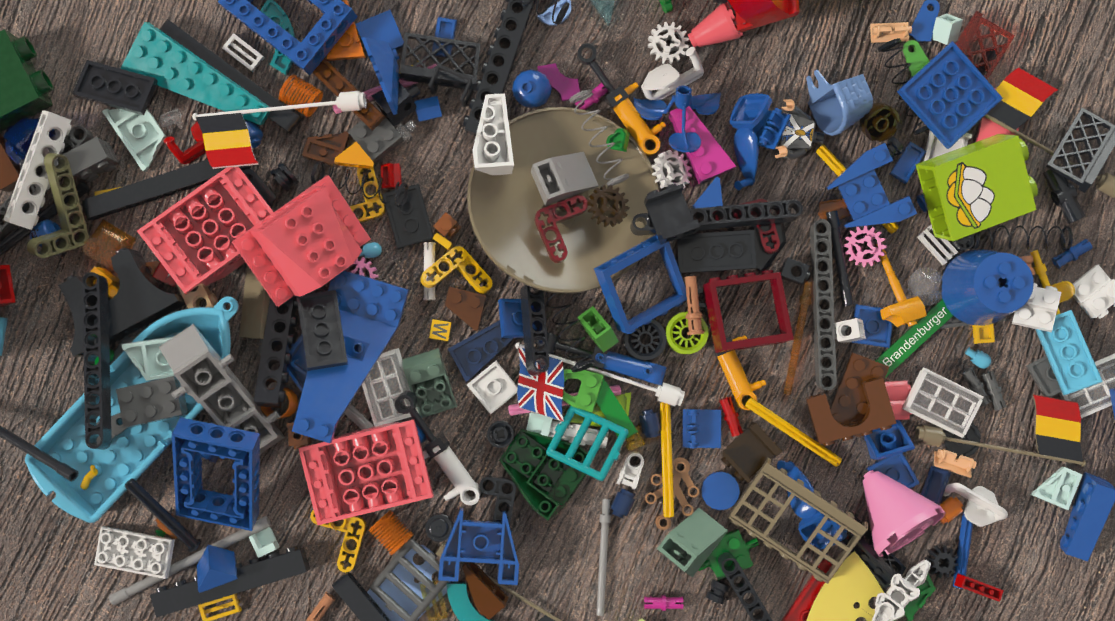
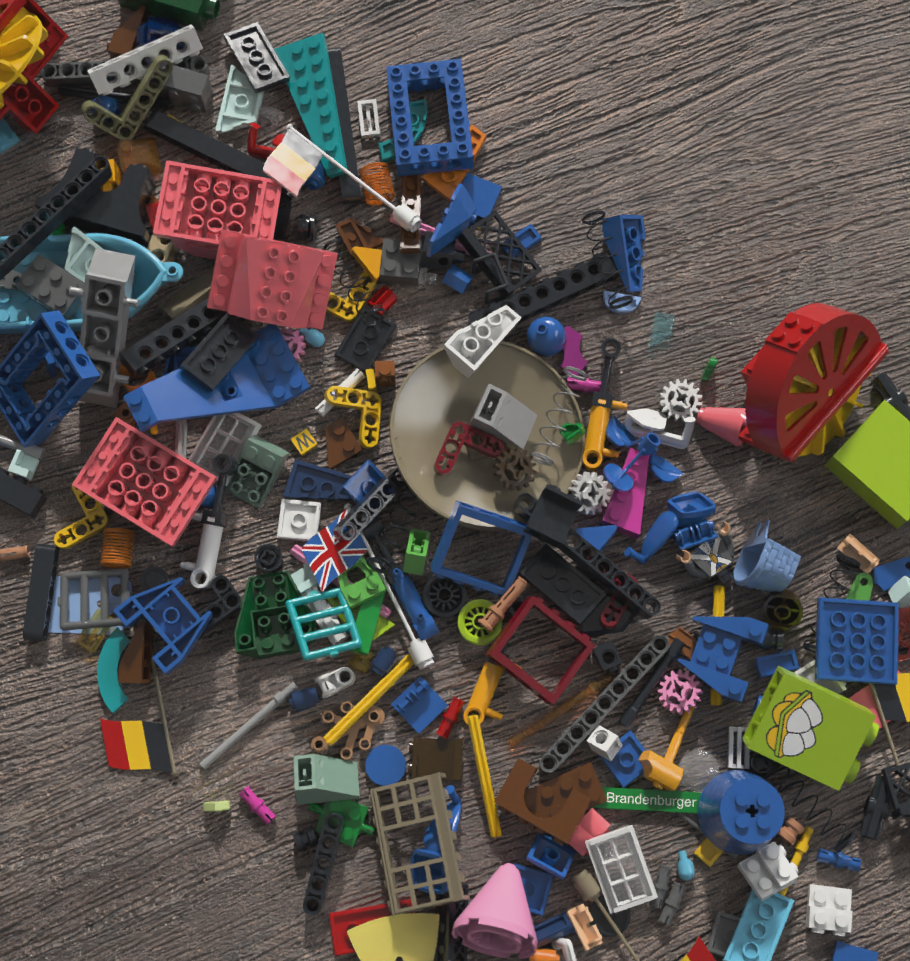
camera: 50 degrees right, 10 degrees down
(1067, 290) = (805, 882): yellow tile -> none

